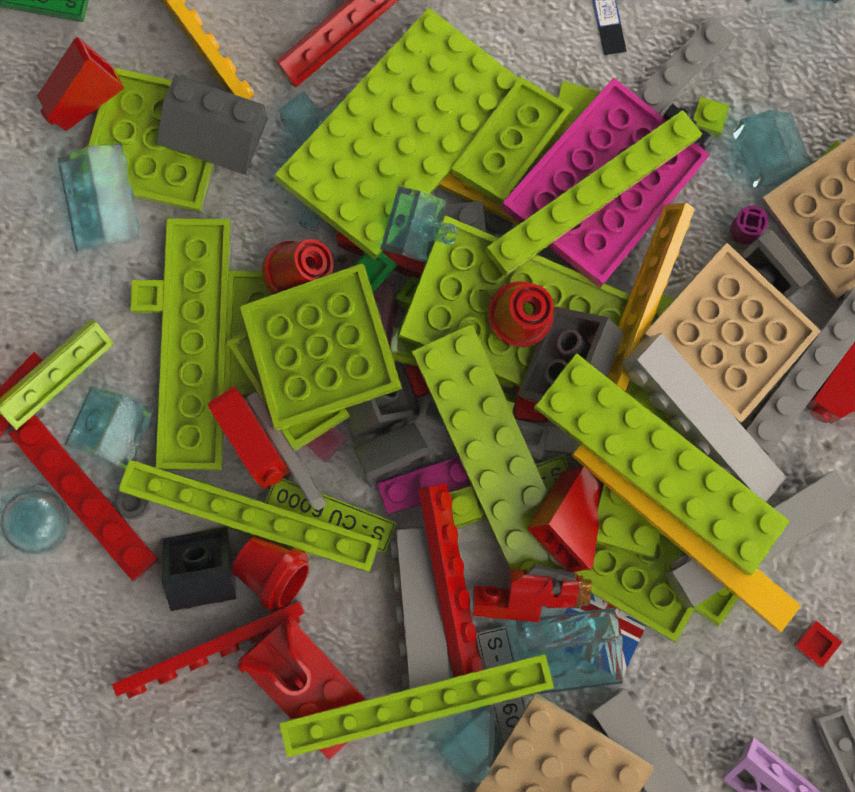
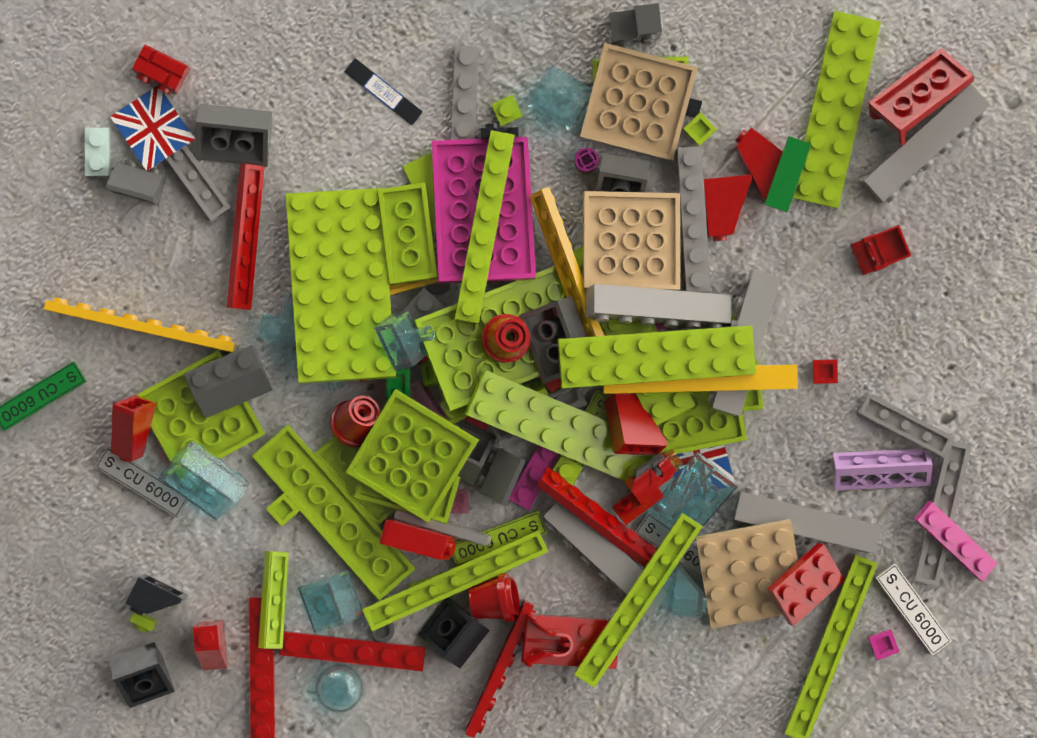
camera: 35 degrees left, 10 degrees up
(41, 155) = (141, 482): none -> light grey tile

